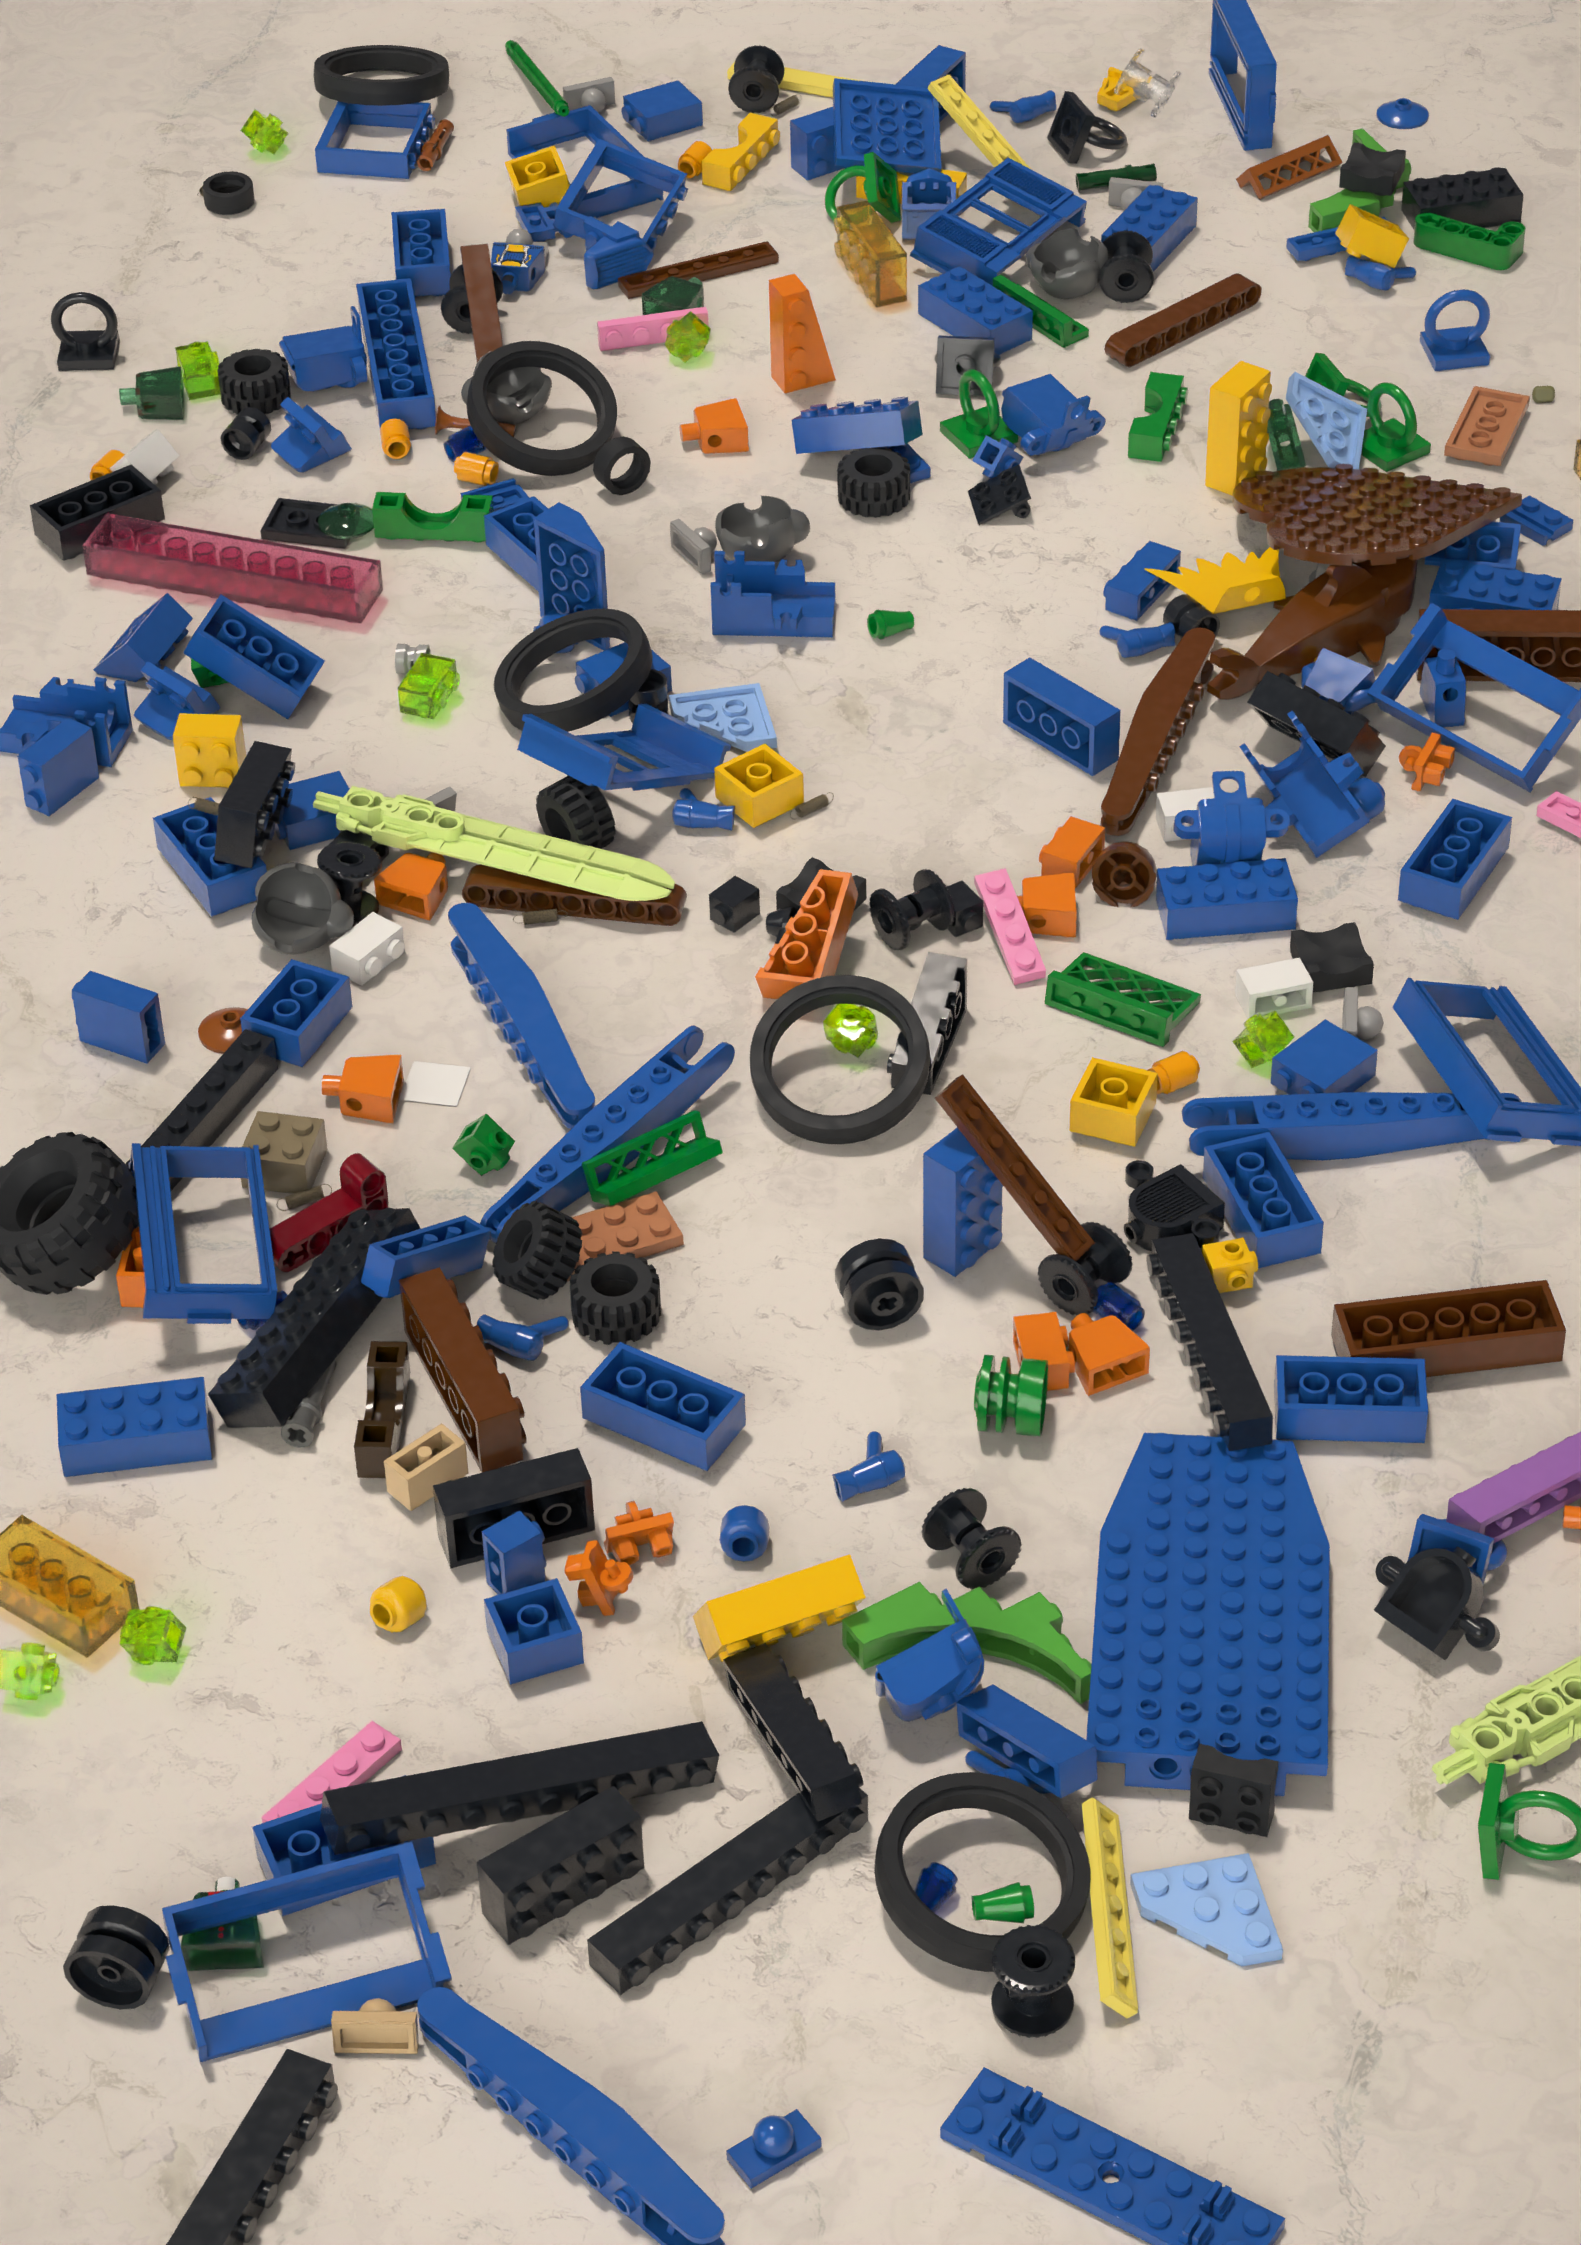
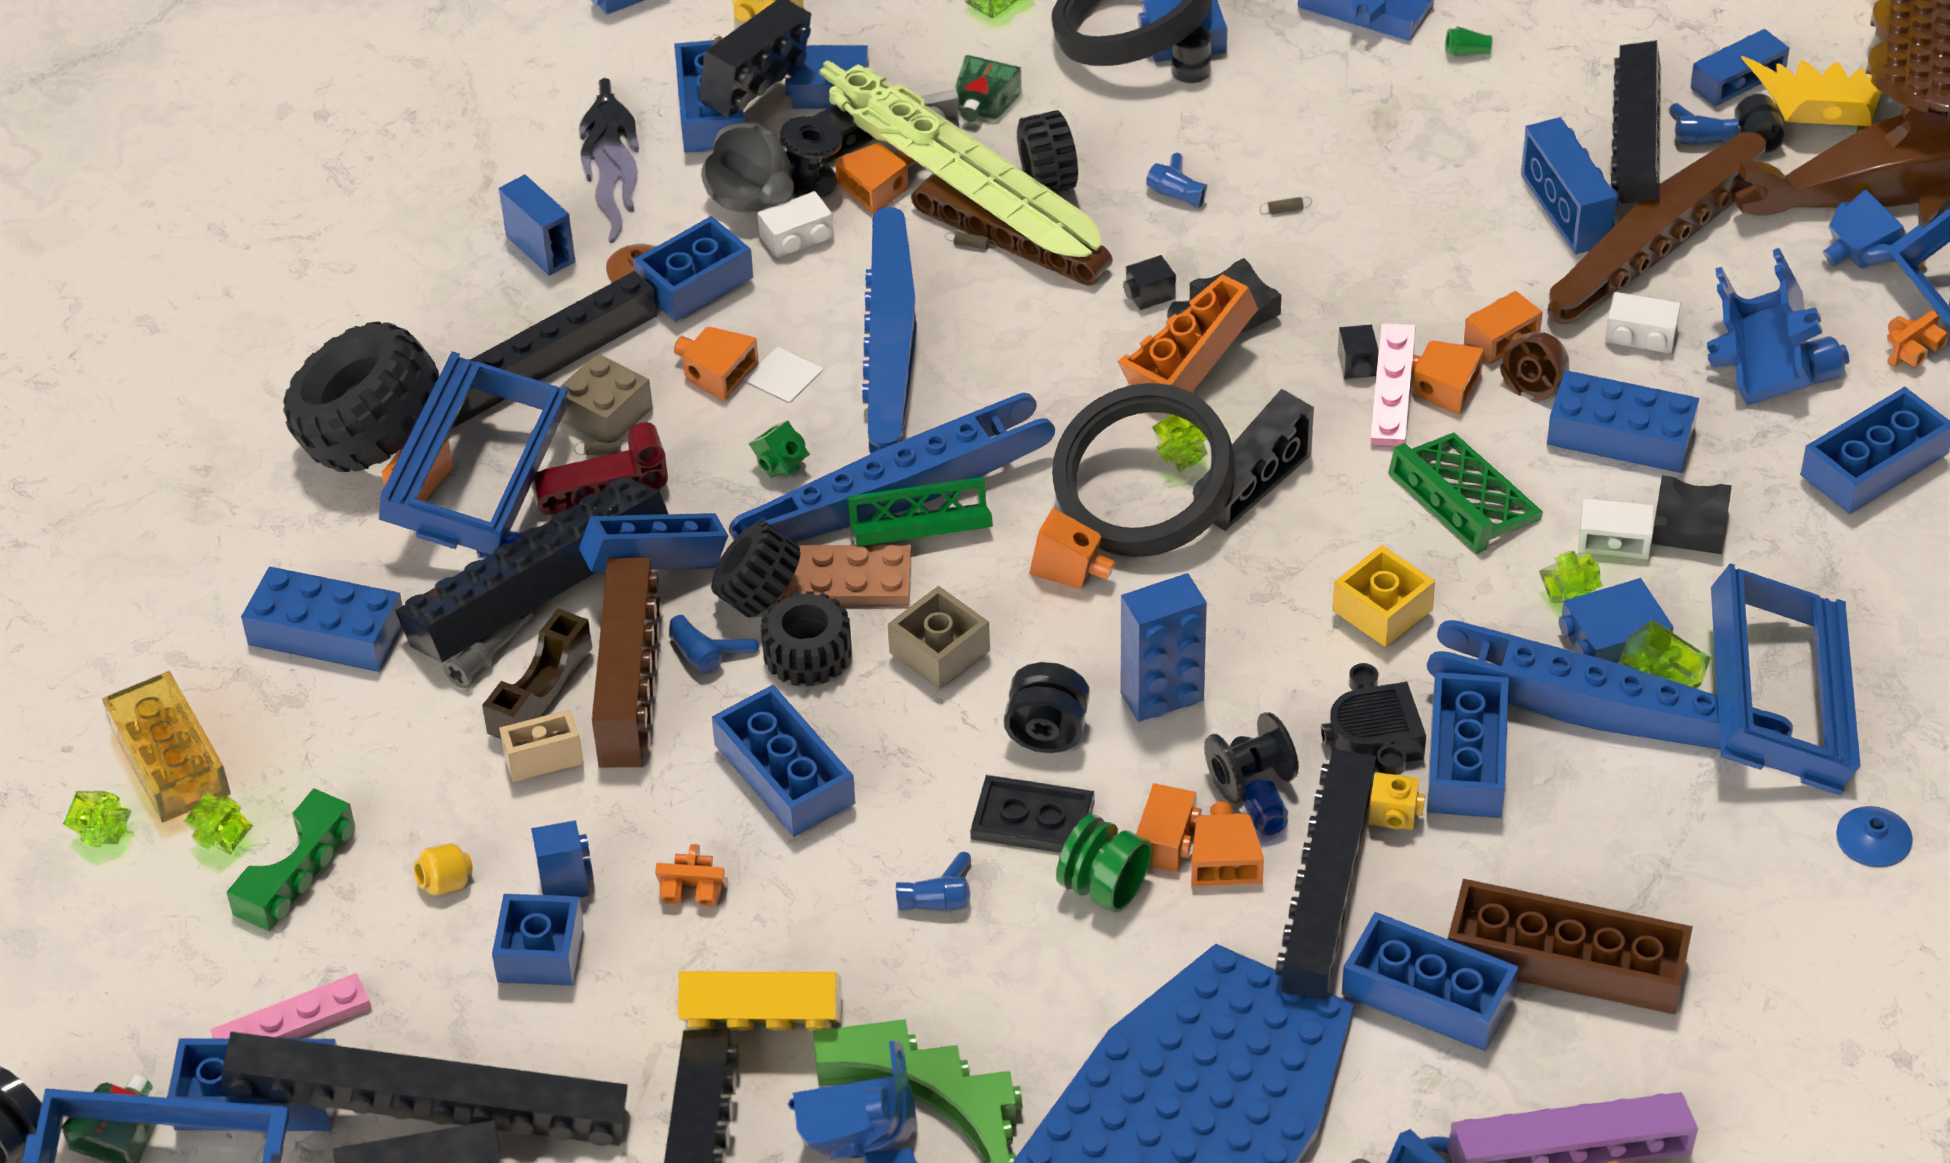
camera: 25 degrees right, 5 degrees up
(143, 940) = (602, 126): none -> clear purple piece
(238, 1679) = (266, 892): none -> green arch
(473, 778) = (986, 87): none -> clear green torso
(546, 1490) = (614, 810): black brick -> none
(602, 1577) = (623, 907): orange hips -> none
(655, 737) = (1177, 104): blue piece -> none
(728, 713) = (1258, 92): light blue plate -> none
(739, 1258) = (939, 637): none -> dark tan brick
(744, 1533) = (784, 911): blue head -> none
(759, 785) = (1240, 171): yellow brick -> none
(811, 1151) = (1068, 552): none -> orange torso
(898, 917) = (1306, 339): black hose -> none
(912, 1382) = (1028, 813): none -> black tile
(984, 1552) = (982, 1013): black hose -> none
(1014, 1169) = (1204, 640): reddish brown tile -> none
(1091, 645) = (1637, 123): none -> black brick
(1175, 1072) = (1464, 584): light orange brick -> none
(1229, 824) = (1653, 347): blue piece -> none
(1326, 722) = (1818, 265): black brick -> none
(1360, 1022) = (1678, 587): light grey tile -> none
(1386, 1072) = (1664, 655): none -> clear neon green brick

